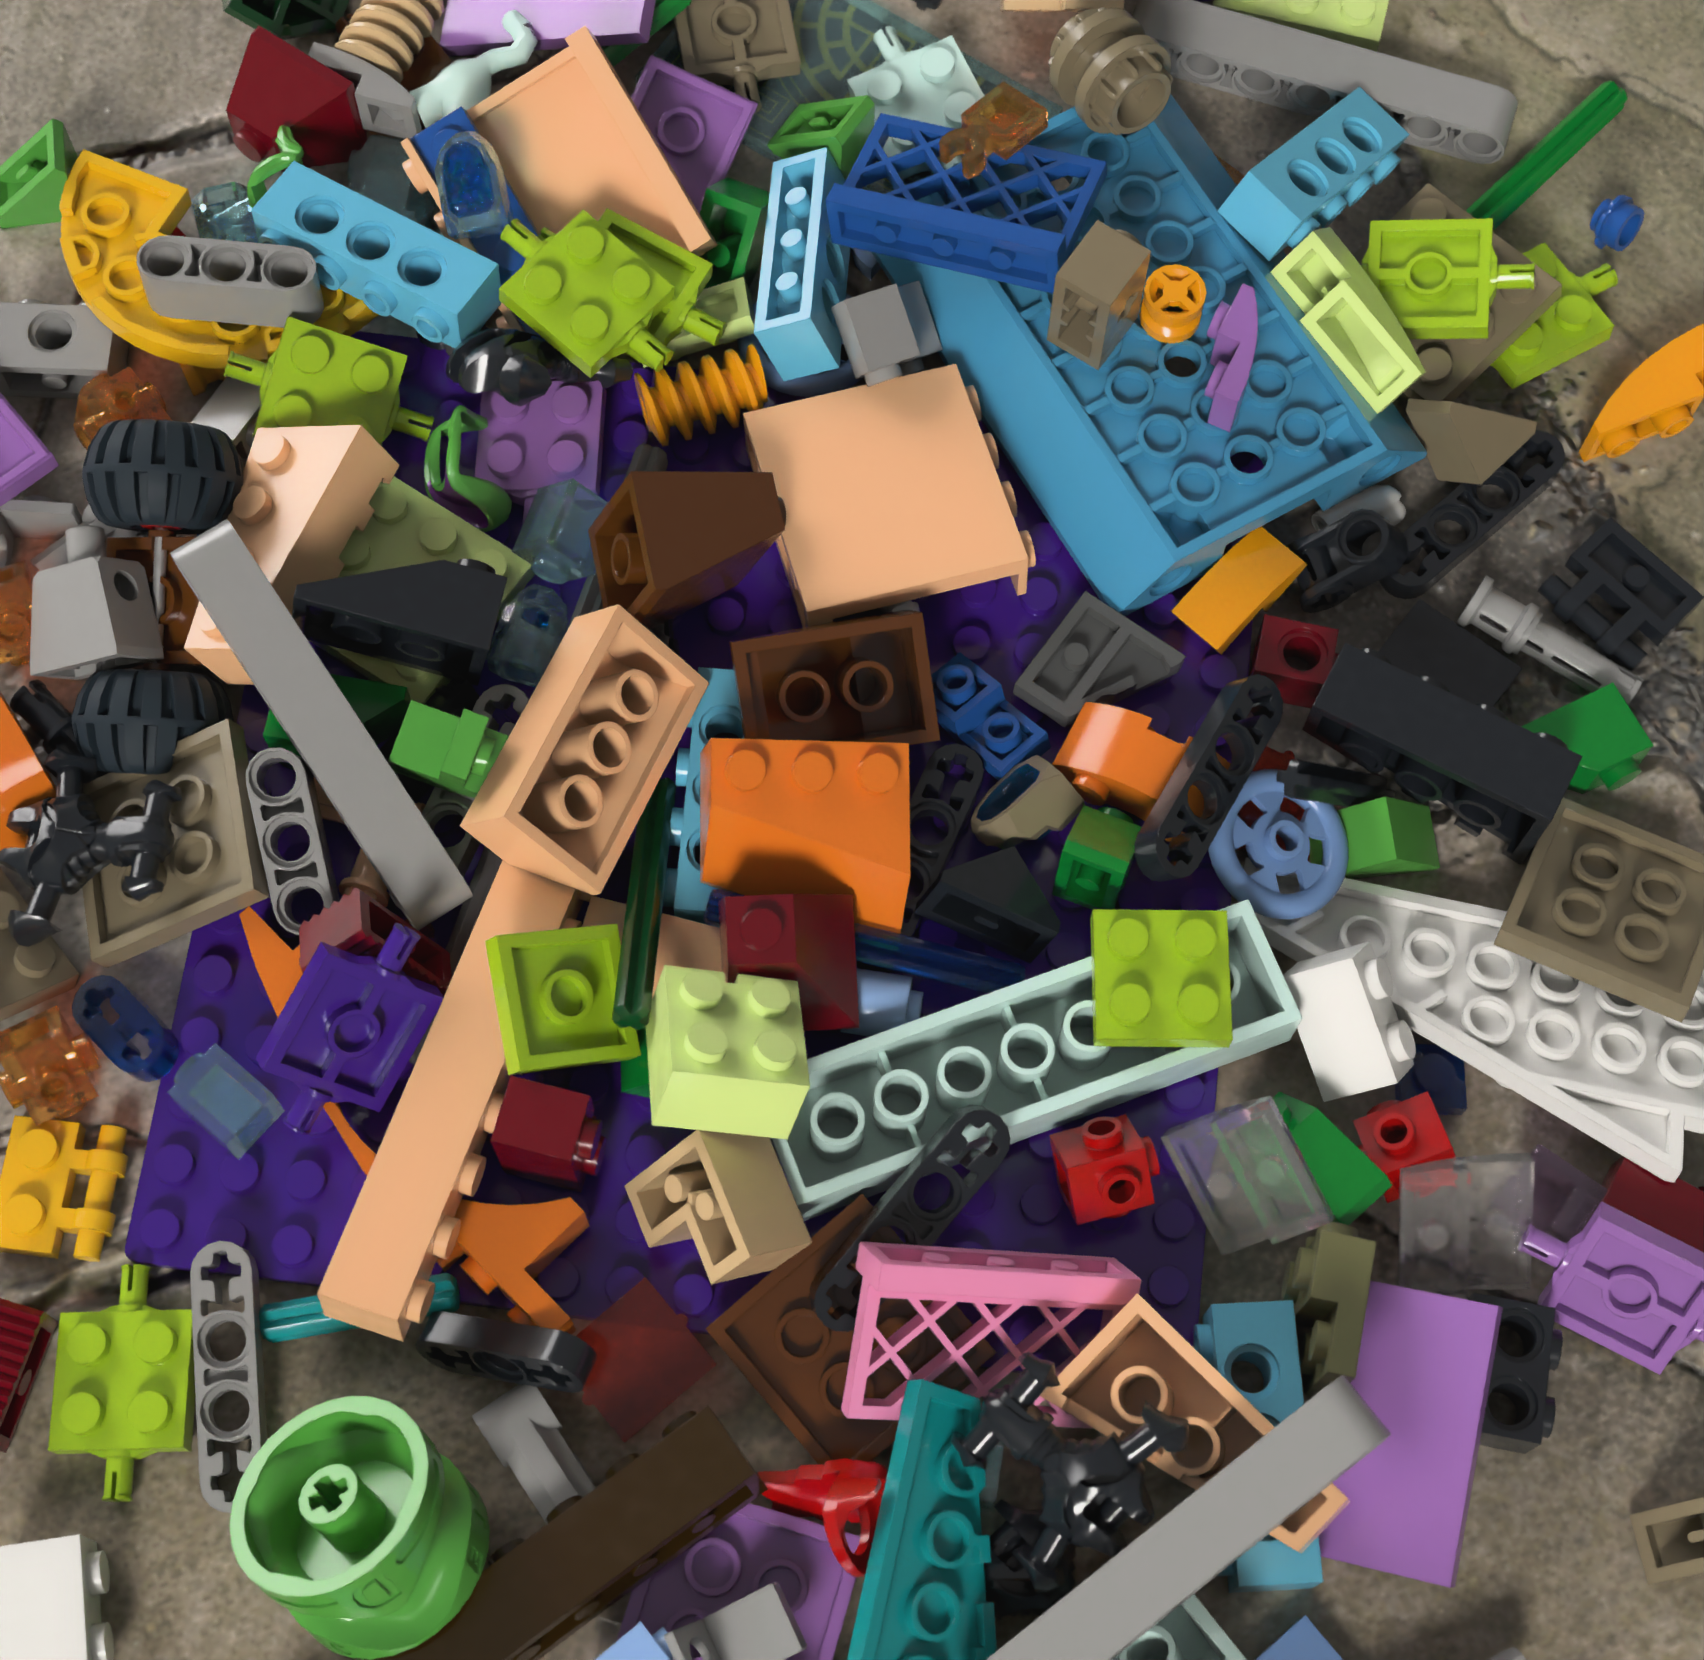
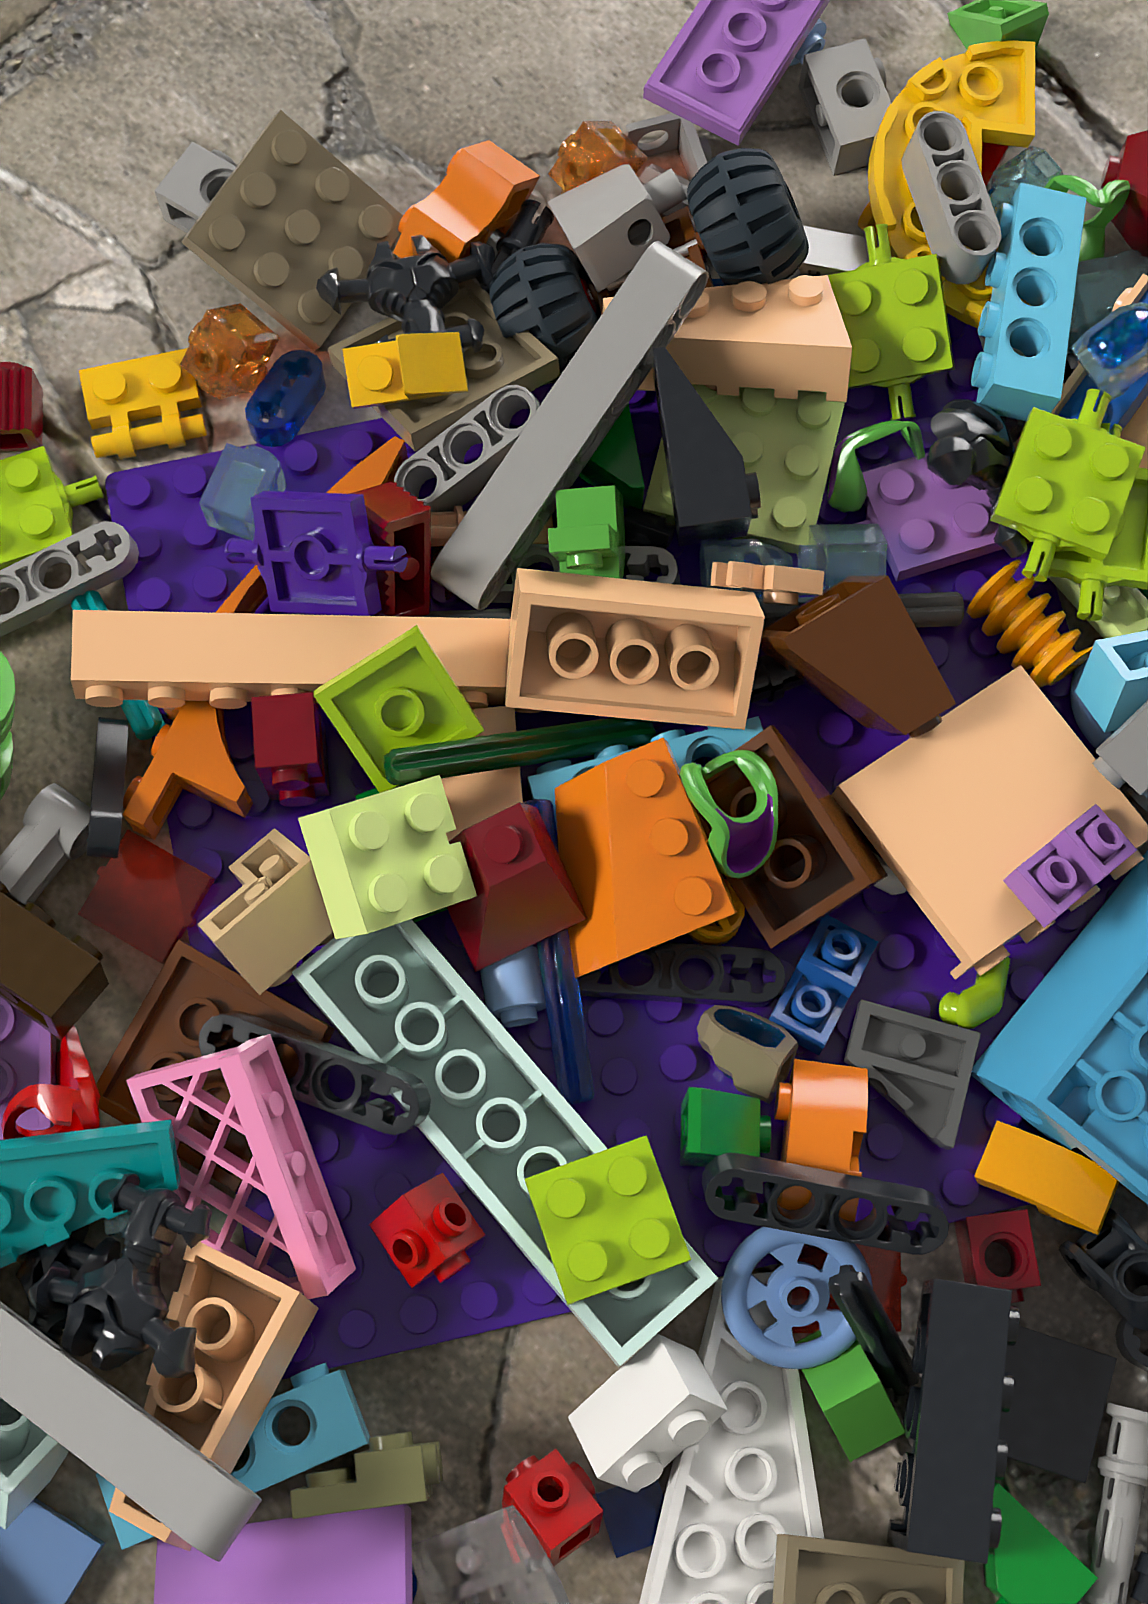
camera: 70 degrees right, 5 degrees up
(114, 399) = (811, 173): clear orange brick -> none
(178, 870) = (405, 369): none -> yellow slope
(569, 598) = (778, 583): none -> light nougat plate
(836, 708) = (740, 843): none -> bright green piece
(963, 440) = (1069, 865): none -> medium lavender slope
(994, 904) = (641, 1051): black slope -> none
(1054, 589) = (977, 1002): none -> lime arm
(1247, 1175) = (461, 1362): clear slope -> none
(1339, 1167) = (500, 1420): green slope -> none

